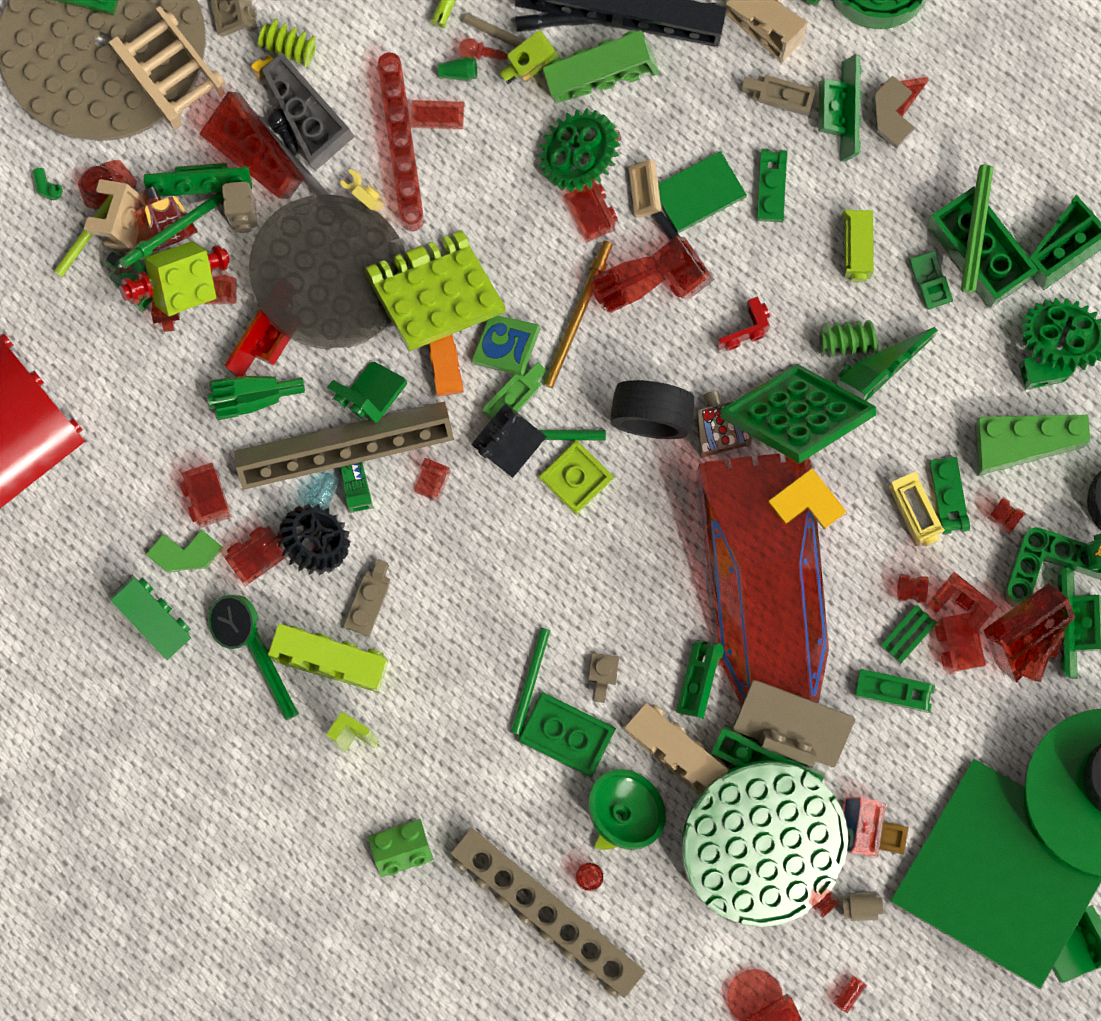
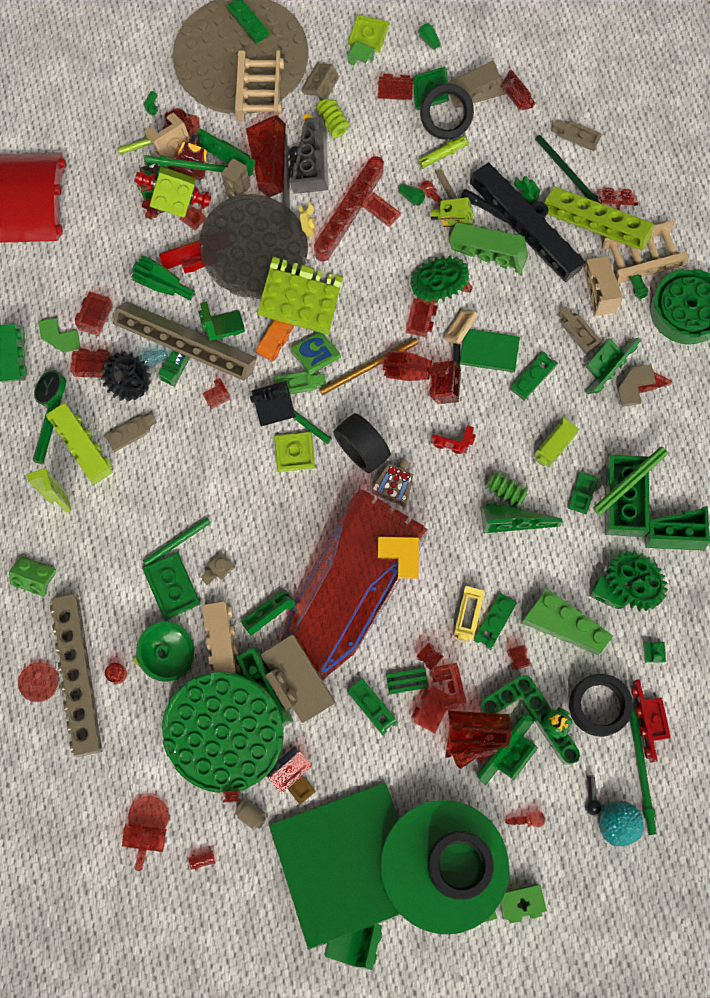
camera: 40 degrees right, 5 degrees down
(504, 947) = (38, 688): none -> clear red tile
(798, 413) = (441, 505): green piece -> none

